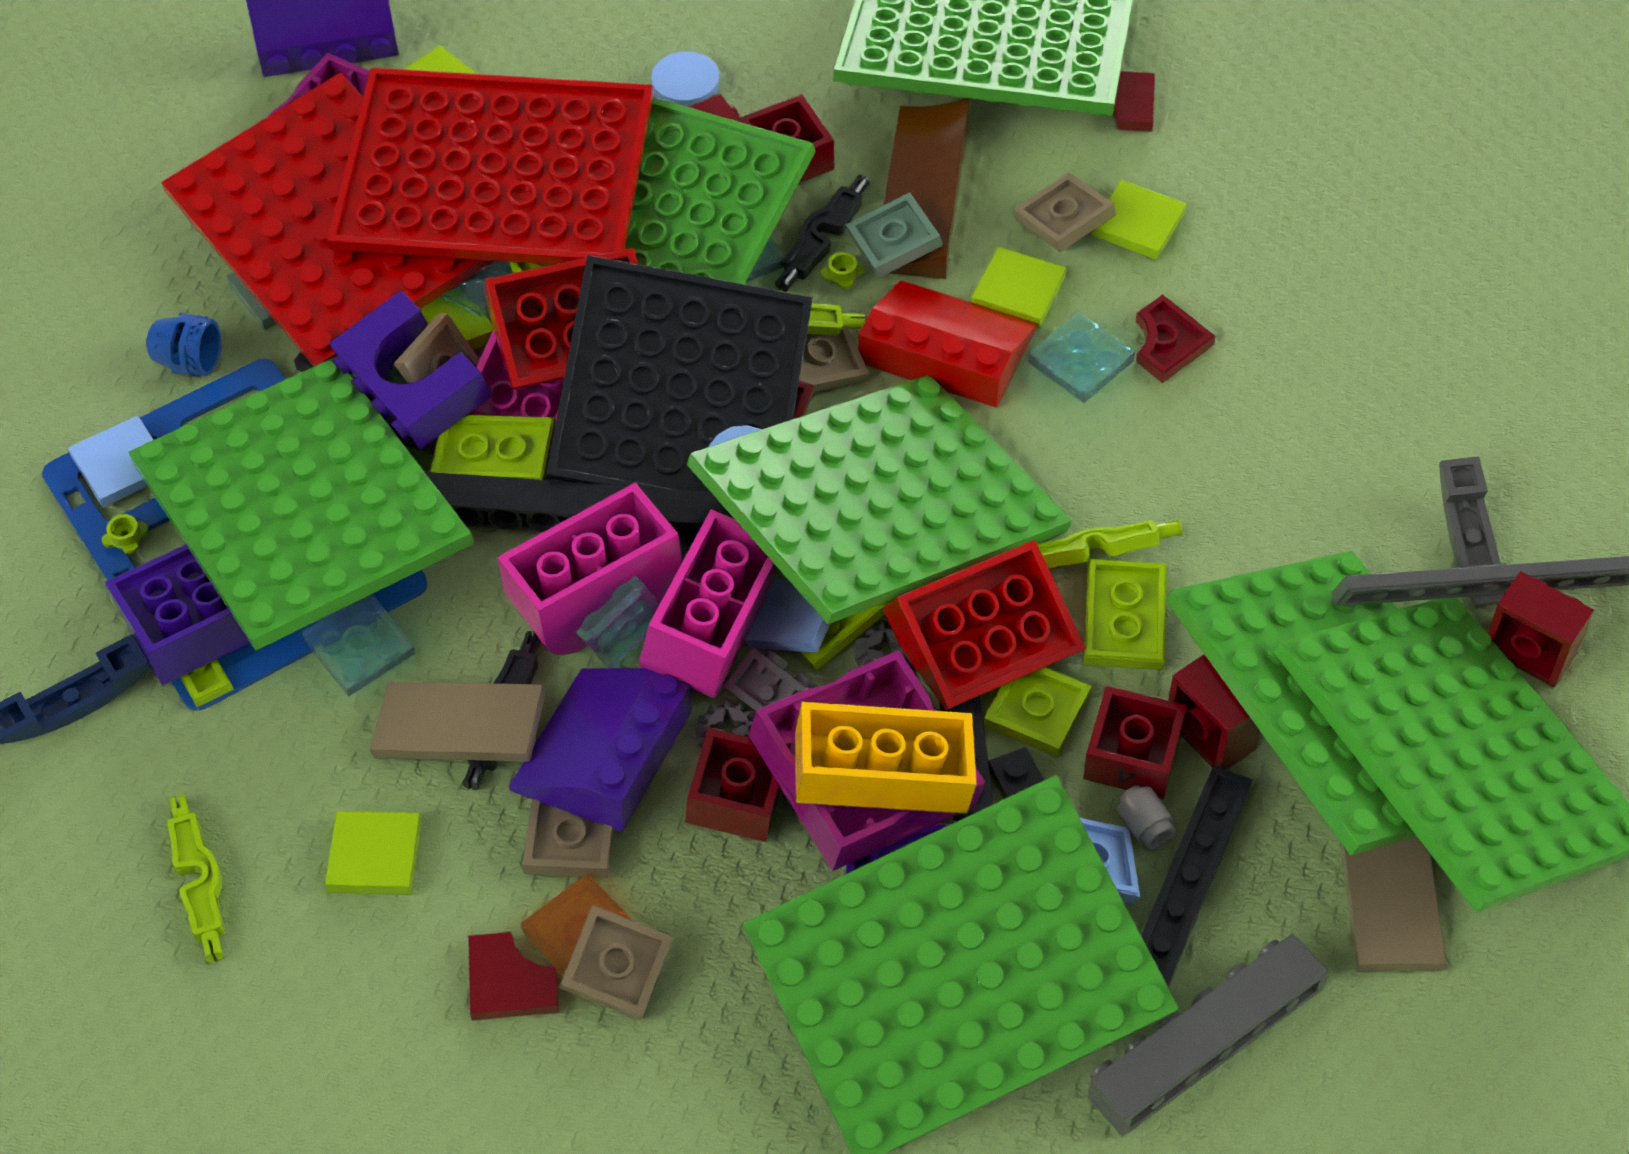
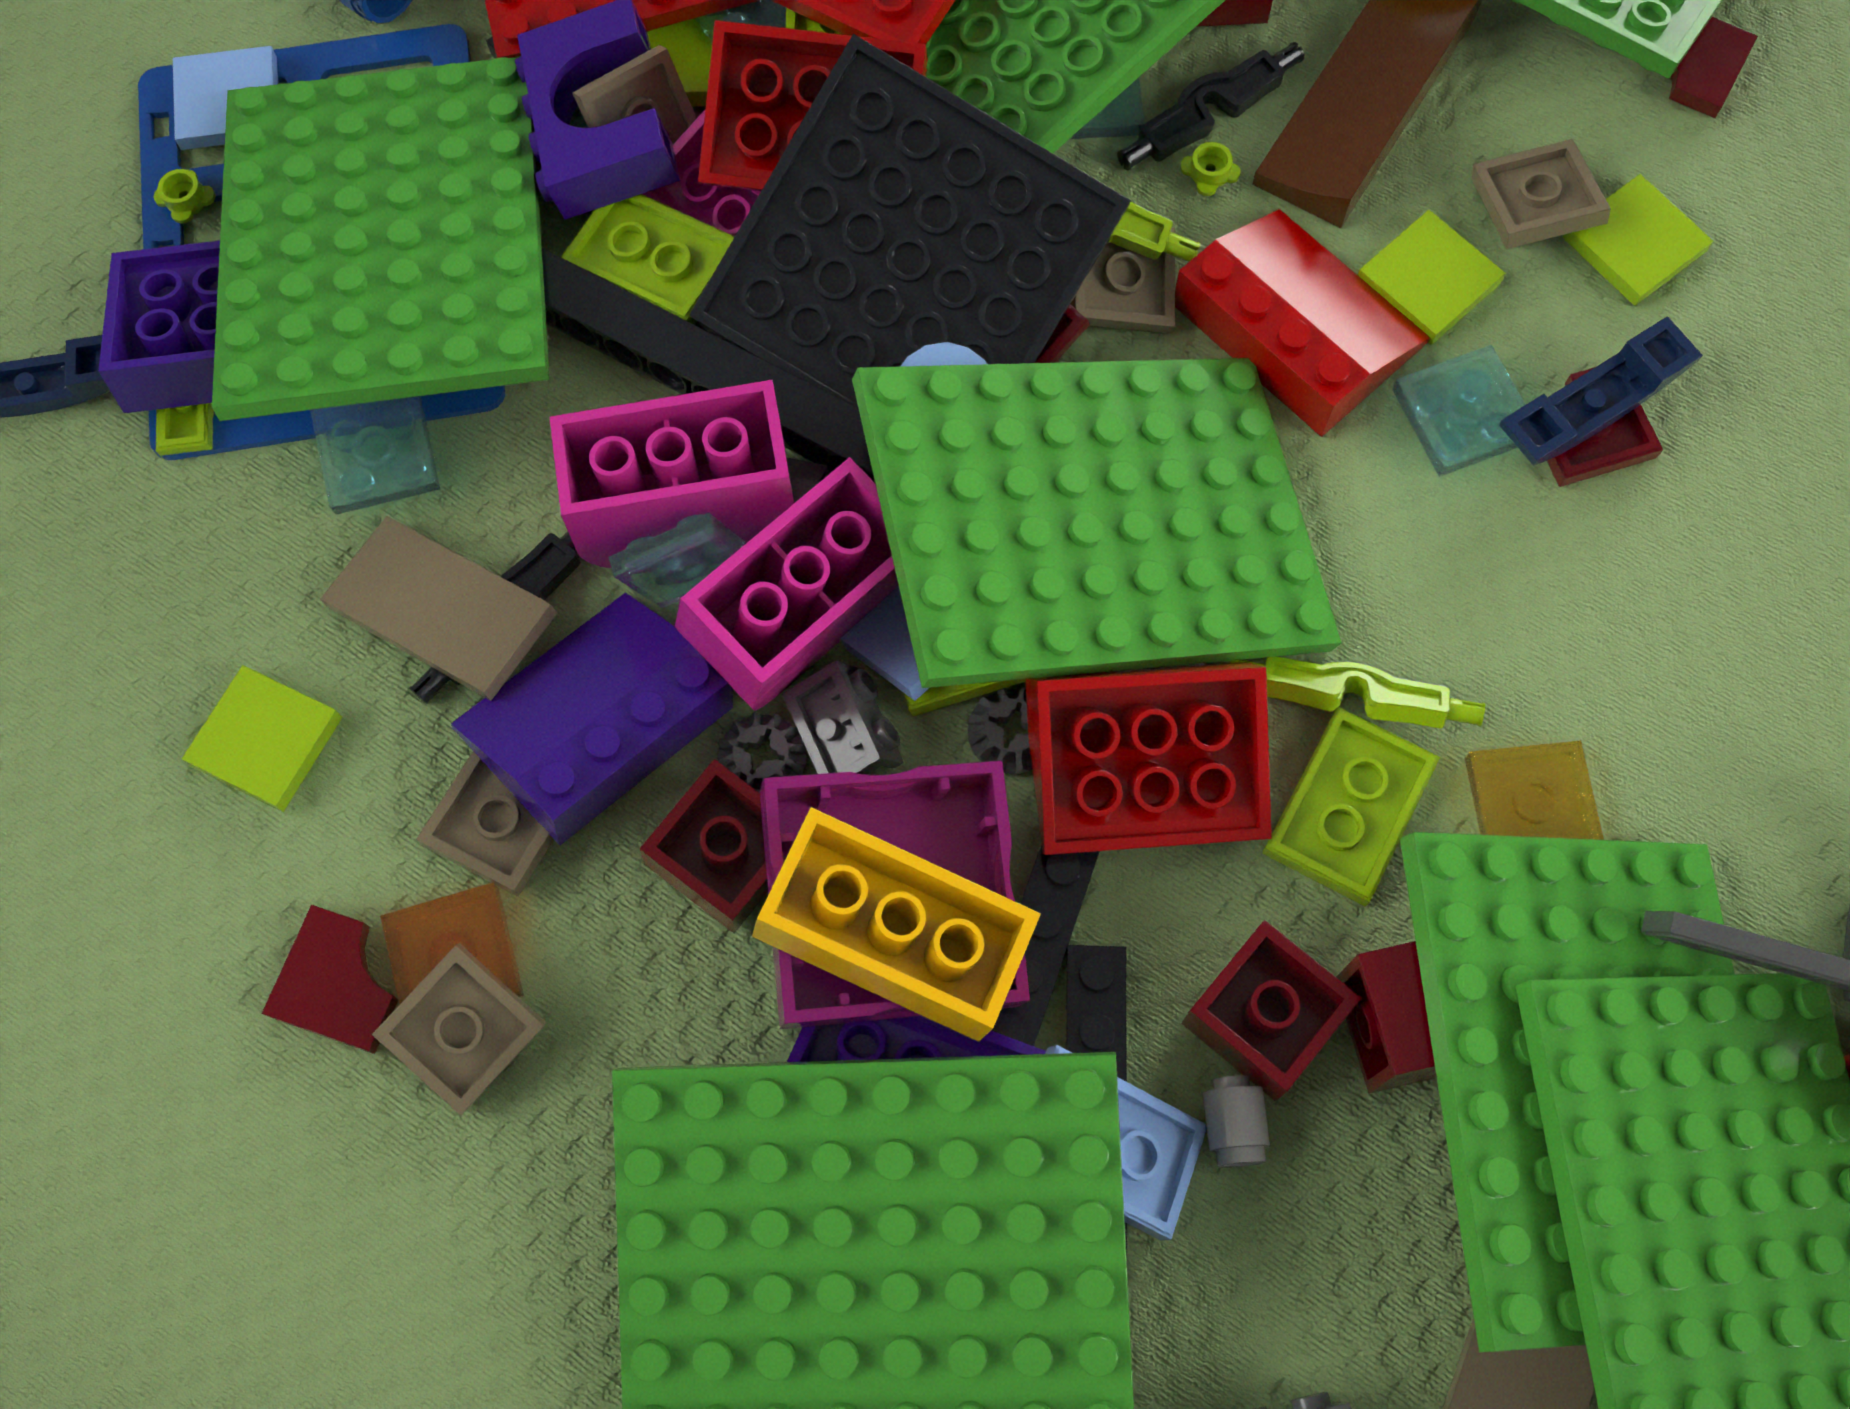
camera: 25 degrees right, 15 degrees up
(202, 894) = (41, 710): lime piece -> none
(894, 235) = (1296, 145): sand green plate -> none
(1038, 709) = (1171, 897): lime tile -> none
(1163, 314) = (1601, 395): none -> dark blue slope
(1194, 868) = (1258, 1235): black plate -> none
(1230, 555) = (1534, 791): none -> clear yellow tile

